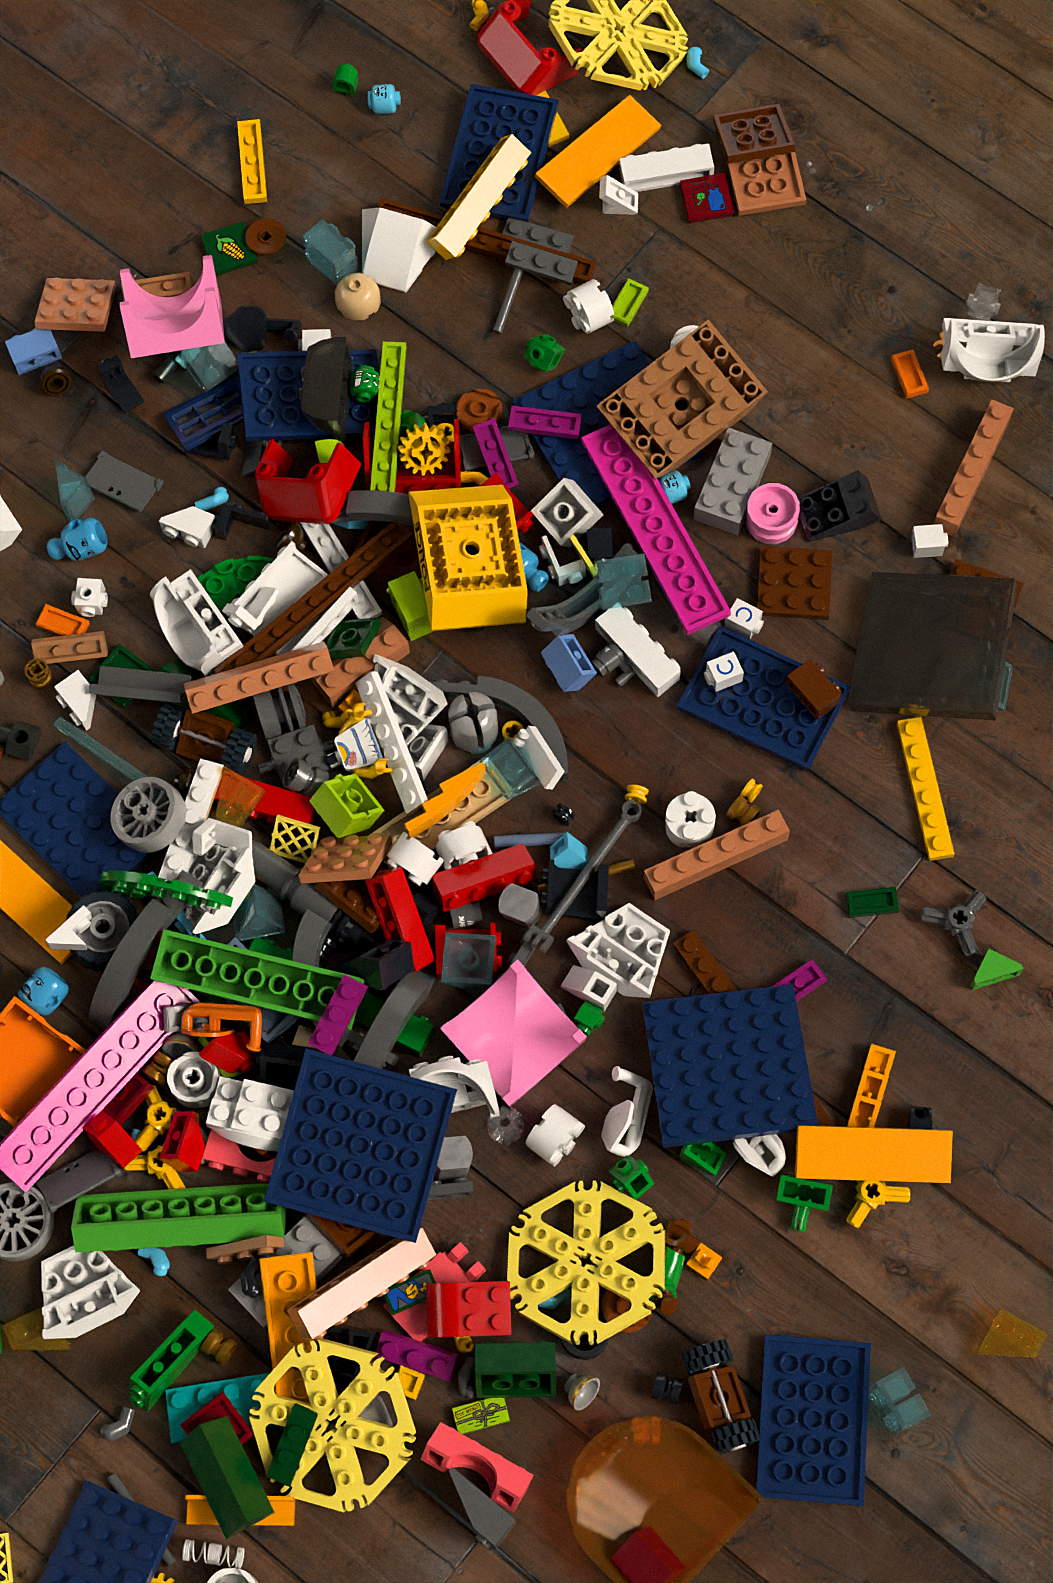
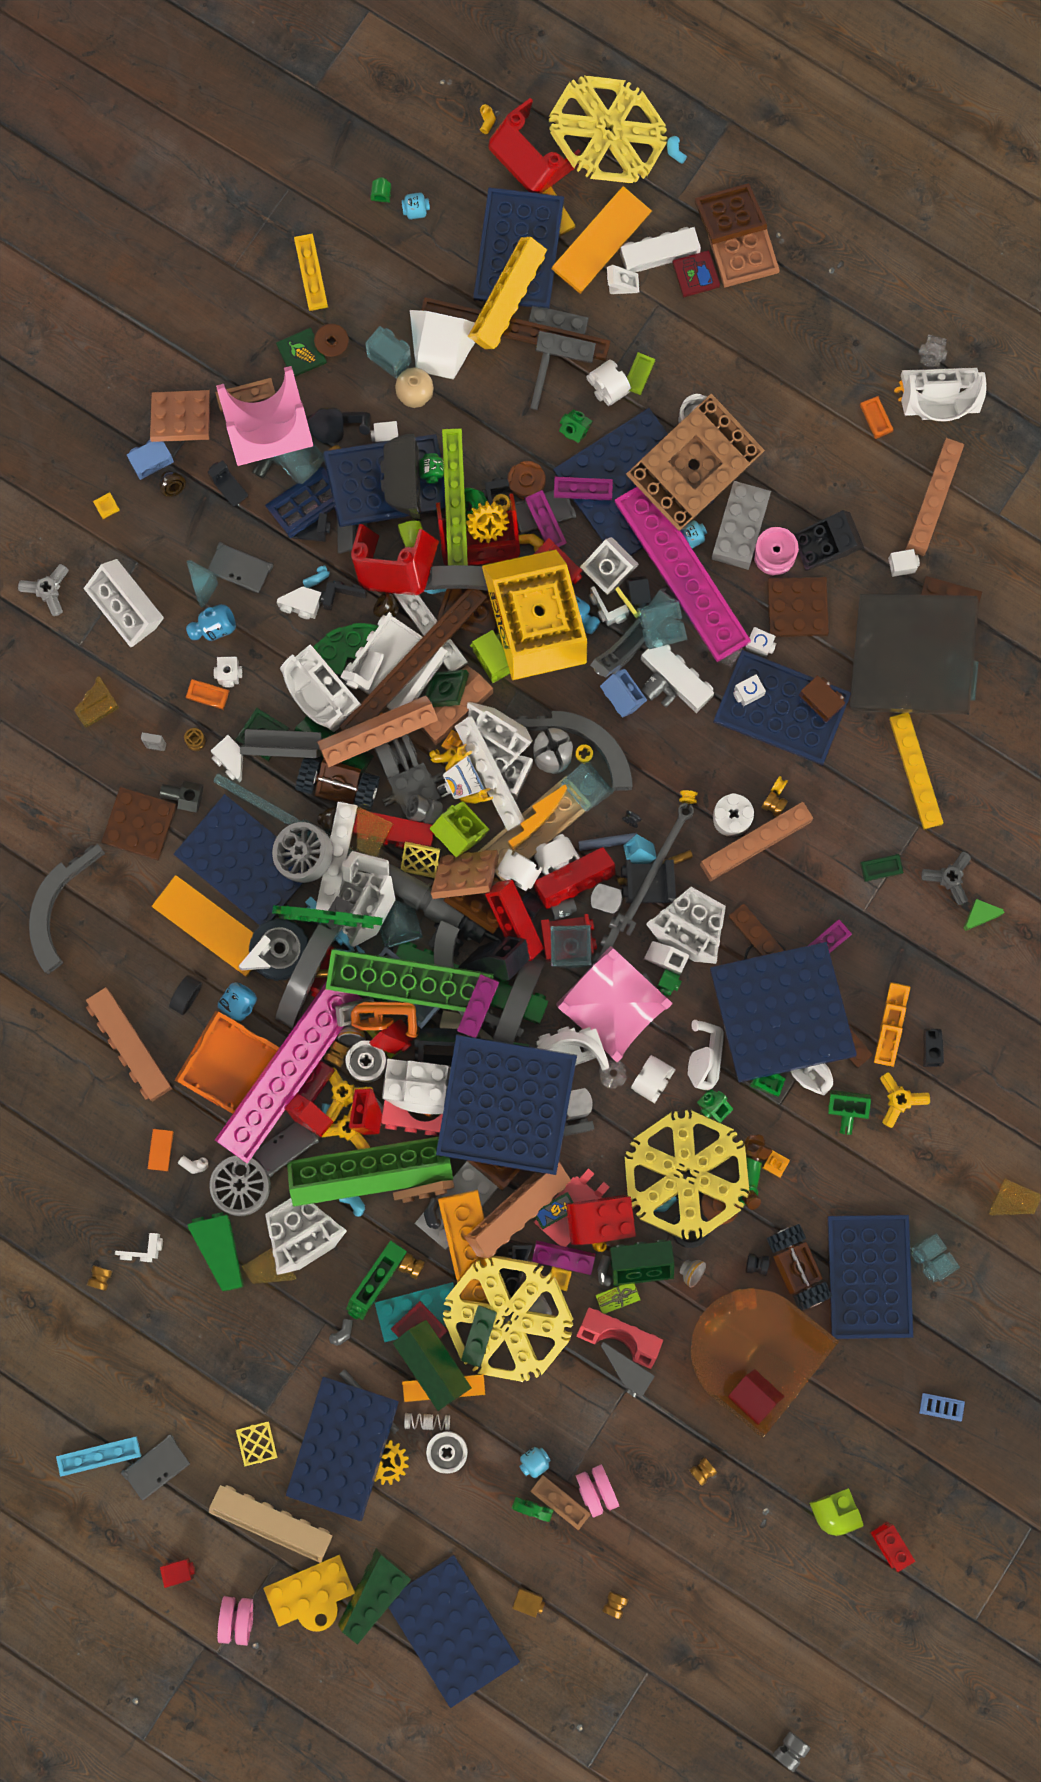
camera: 10 degrees left, 10 degrees up
(70, 647) = (217, 715): medium nougat plate -> none
(539, 756) = (609, 775): white hinge -> none
(873, 1154) = (900, 1071): light orange tile -> none

